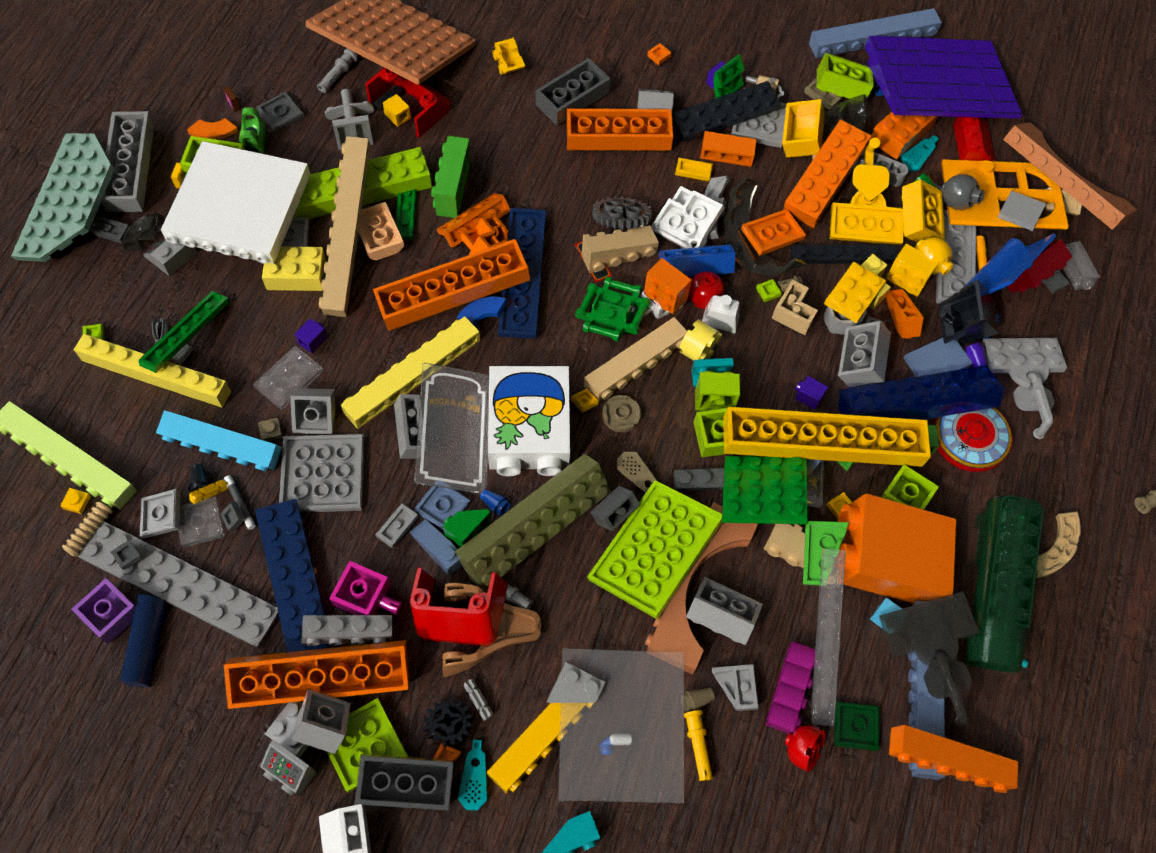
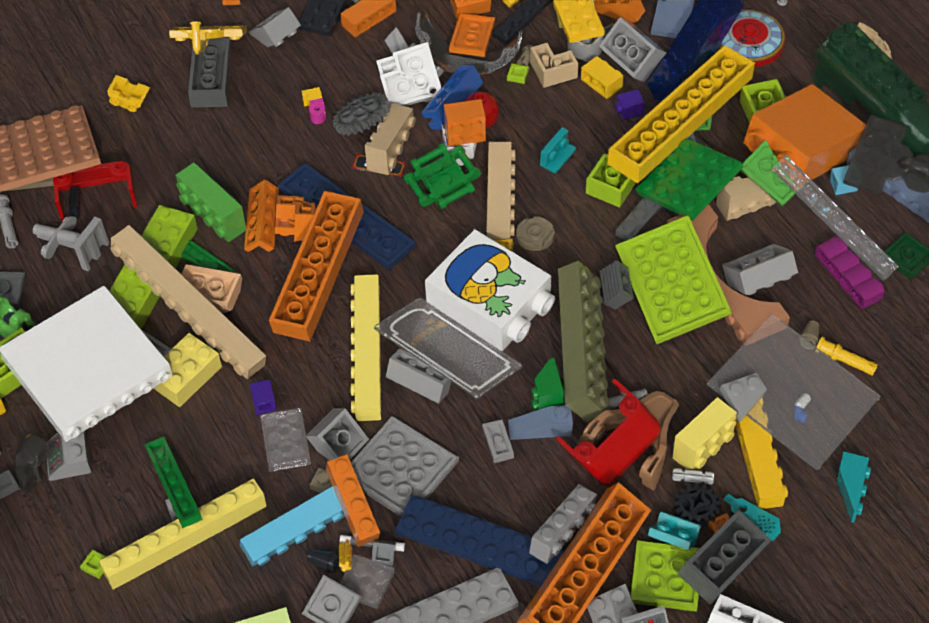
camera: 45 degrees left, 10 degrees down
(155, 328) = (157, 516): dark grey piece -> none
(249, 461) = (352, 500): none -> orange brick
(321, 721) = (631, 582): light grey slope -> none
(375, 587) = (538, 495): dark pink brick -> none
(396, 110) = (98, 201): yellow brick -> none
(405, 723) = (675, 531): none -> teal bracket
(440, 504) = (507, 401): sand blue tile -> none
(483, 308) = (356, 261): blue tile -> none
(496, 502) = (536, 361): blue cone -> none
(516, 682) = (704, 435): none -> light yellow brick
(596, 56) = (201, 34): none -> yellow plate
(609, 177) = (314, 100): none -> leg
(619, 129) = (279, 66): orange brick -> none
(641, 476) = (600, 255): dark tan piece -> none
(693, 169) = (362, 47): yellow tile -> none
(700, 341) = (526, 140): light yellow brick -> none
(717, 390) = (578, 157): lime brick -> none
(722, 313) = (513, 112): white torso -> none
(738, 685) = (821, 303): light grey wing -> none
(804, 746) = (899, 291): red cylinder -> none
(820, 352) = (602, 77): none -> yellow brick
(837, 503) = (736, 150): yellow tile -> none

